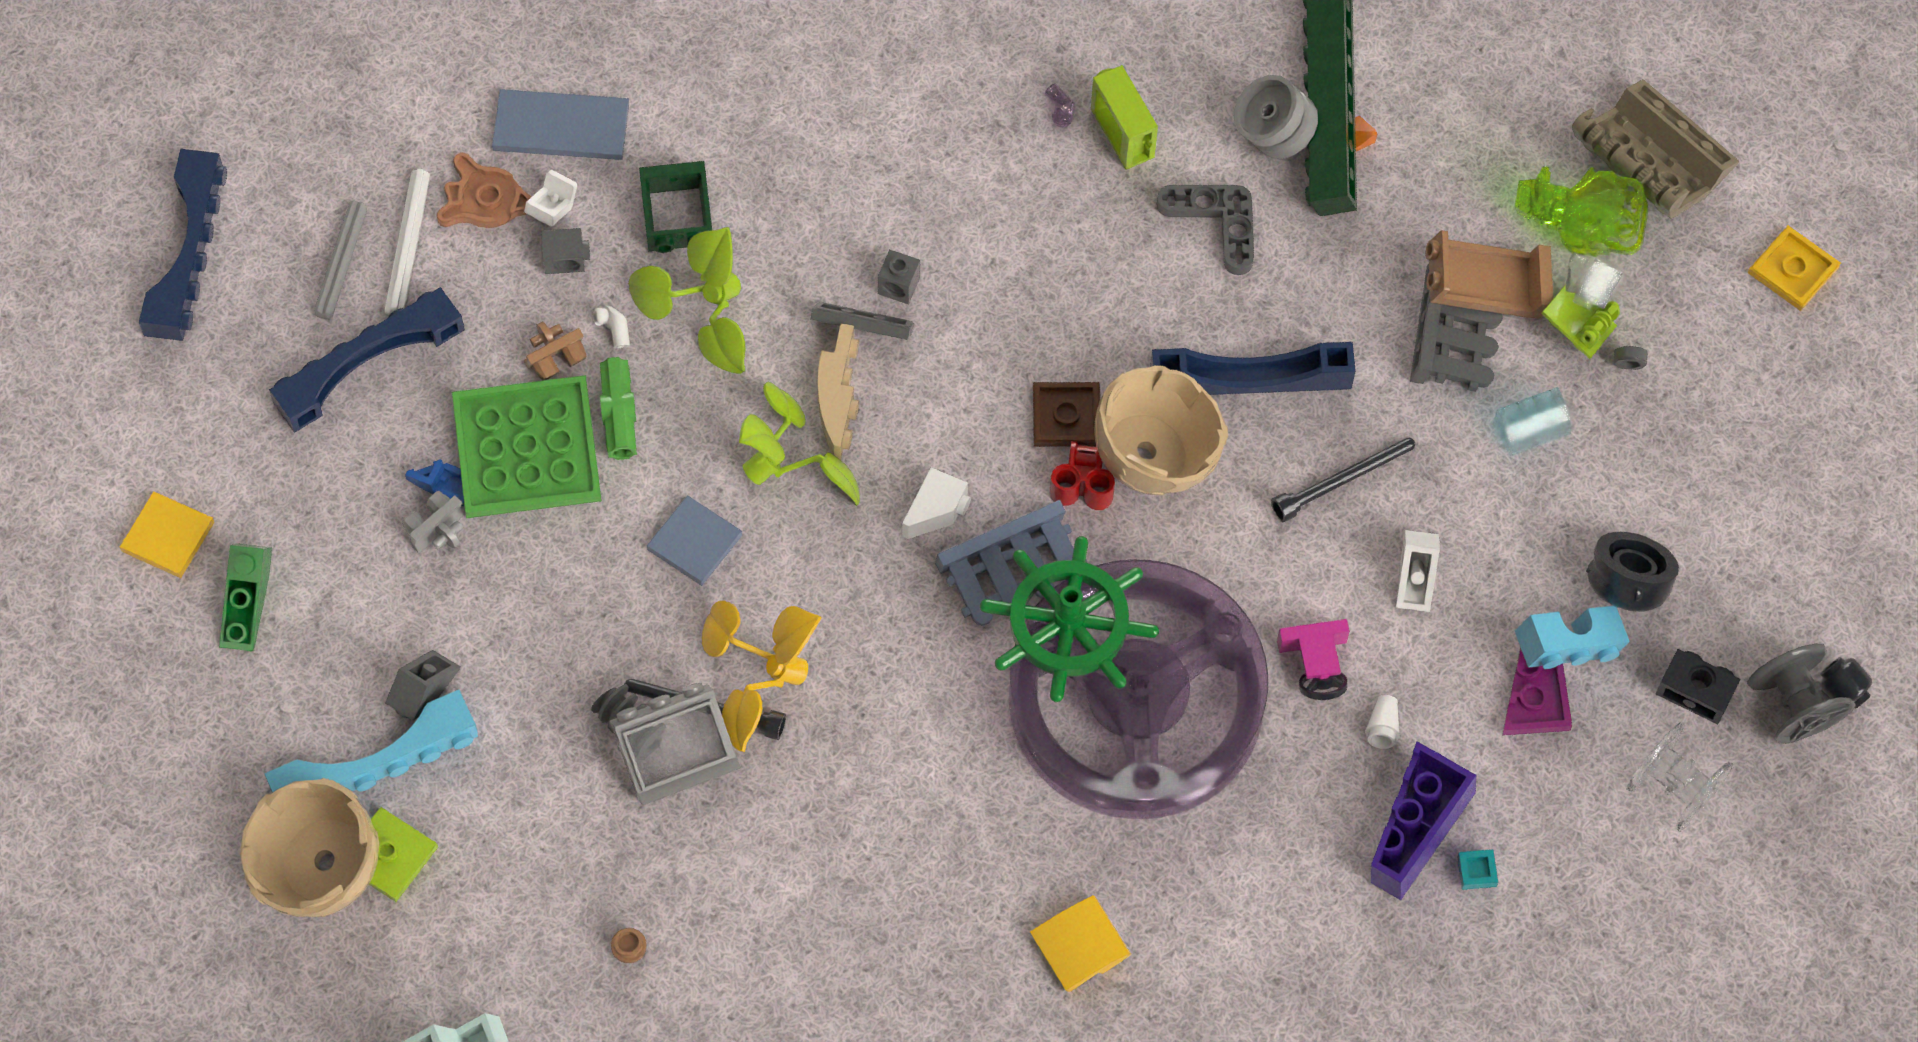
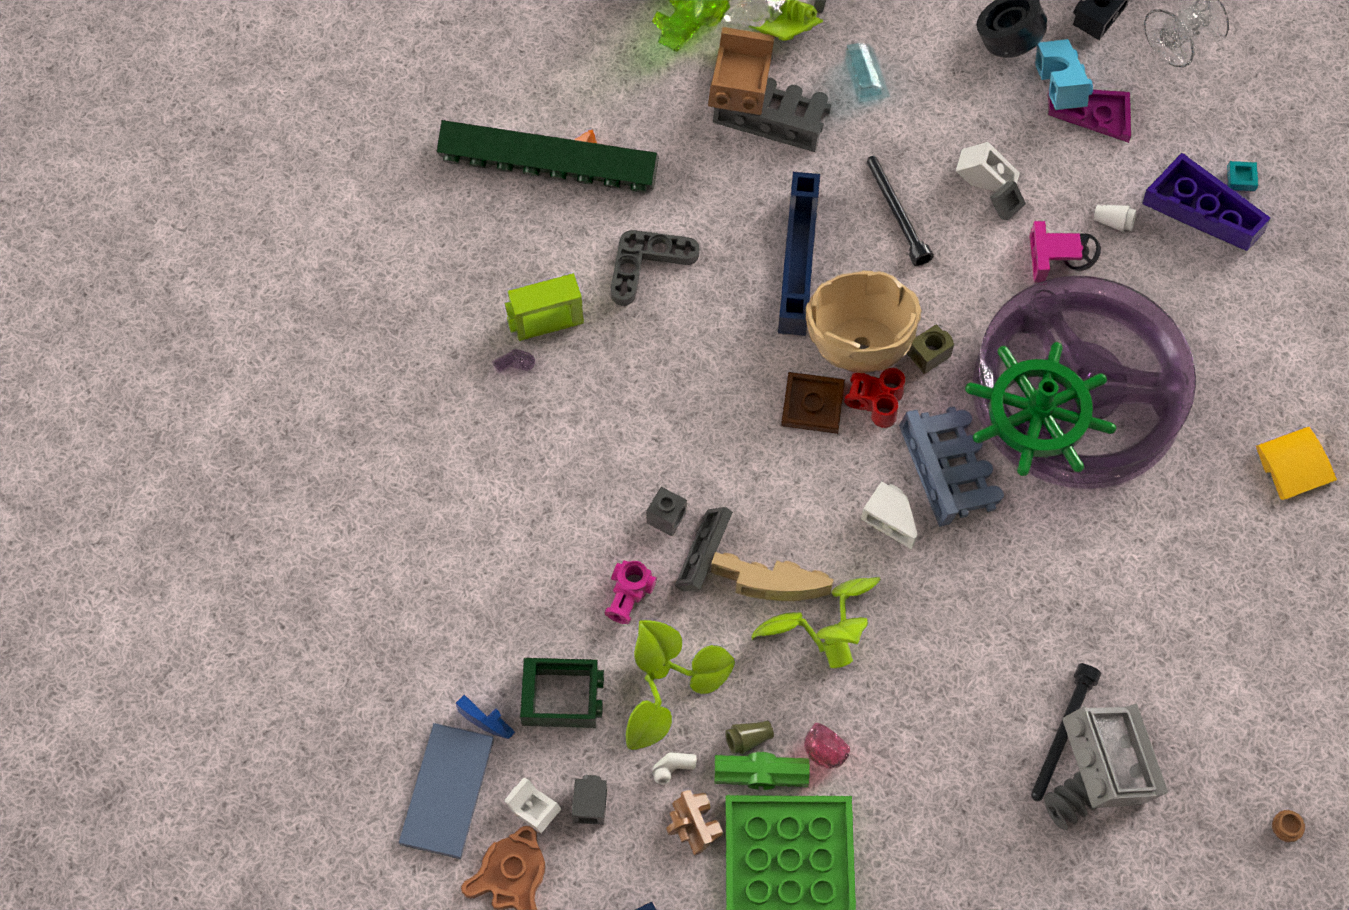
camera: 80 degrees left, 0 degrees up
(641, 132) = (490, 723): none -> blue slope
(652, 456) = (825, 747): none -> clear pink hair
(655, 391) = (748, 735): none -> olive cone
(694, 540) = (899, 721): sand blue tile -> none
(789, 633) = (1037, 634): yellow plant -> none
(799, 255) = (628, 592): none -> dark pink connector
(1152, 514) = (926, 358): none -> olive brick
(1275, 116) = (585, 188): light grey wheel -> none
(1379, 595) = (1008, 200): none -> dark grey plate

